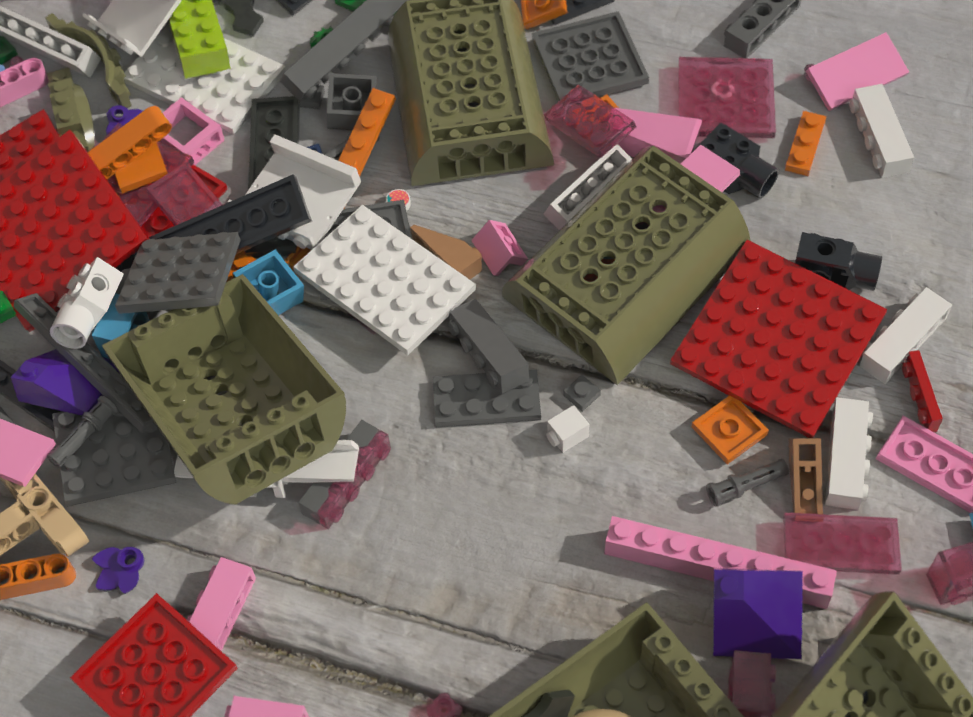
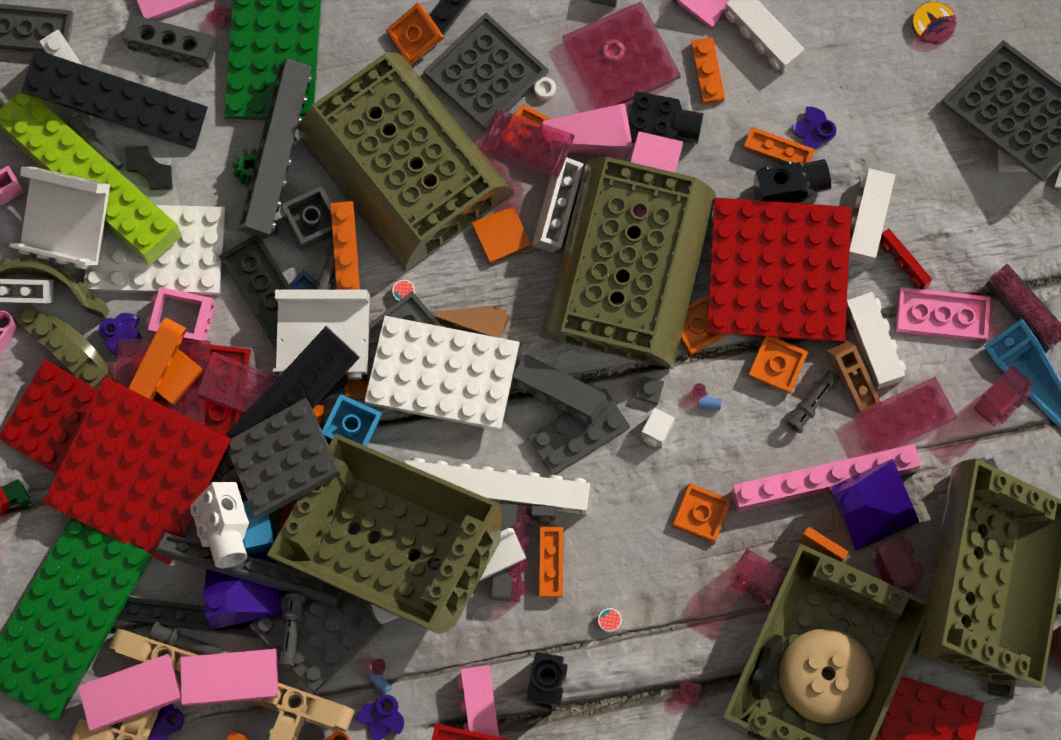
camera: 30 degrees left, 15 degrees up
(141, 526) = (376, 676): none -> arm
(296, 619) = (546, 681): none -> black brick
(381, 504) = (551, 562): none -> orange plate
(402, 454) = (543, 514): none -> dark grey plate
(404, 425) = (513, 488): none -> white brick
(405, 592) = (609, 620): none -> coral tile
(498, 247) = (512, 294): bright pink panel -> none
(520, 194) = (501, 234): none -> orange tile
(566, 535) = (701, 513): none -> orange tile
(581, 616) = (757, 577): none -> clear pink brick
(632, 426) = (703, 399): none -> arm
(637, 95) = (545, 89): none -> white tile
(657, 365) = (695, 328): none -> orange tile
(676, 622) = (823, 545): none -> orange tile
(828, 224) = (777, 147): none -> orange plate
(885, 236) = (811, 128): none -> dark purple plate

